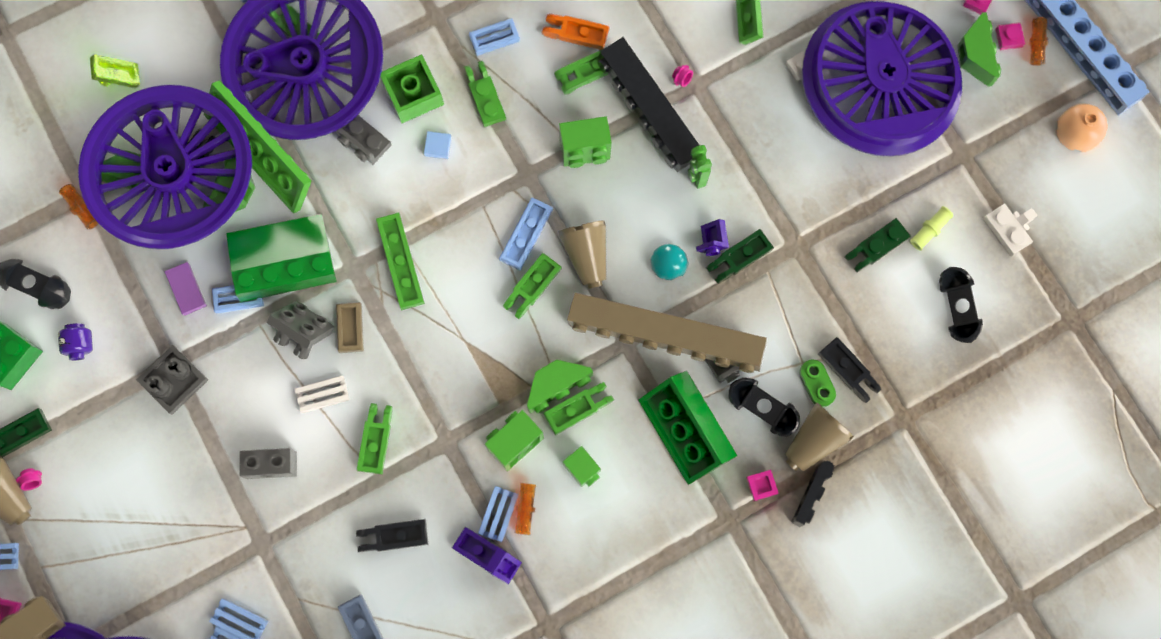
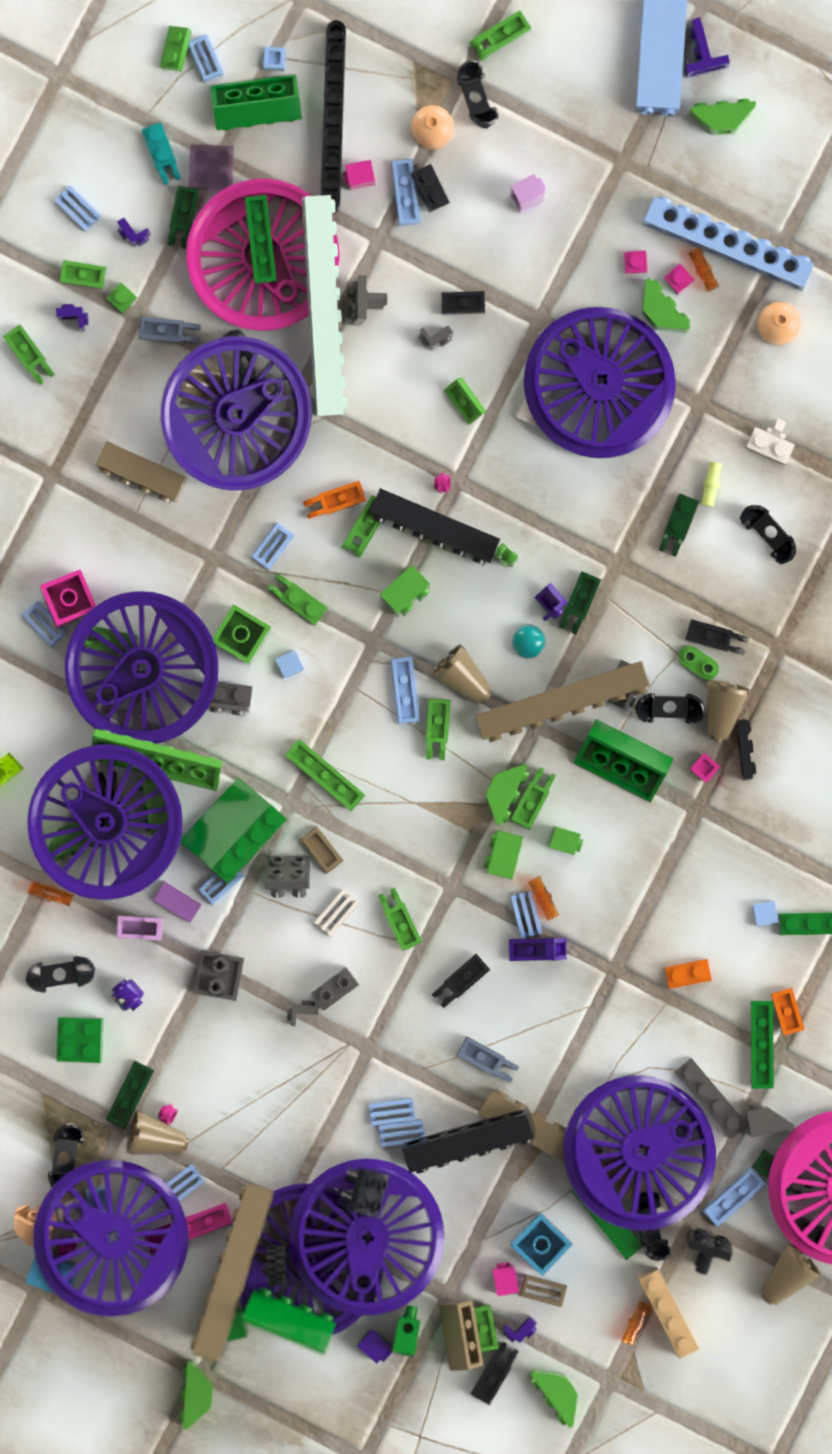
camera: 30 degrees left, 10 degrees up
(131, 287) = (140, 928): none -> lavender brick
(229, 464) = (306, 1007): none -> dark grey bracket

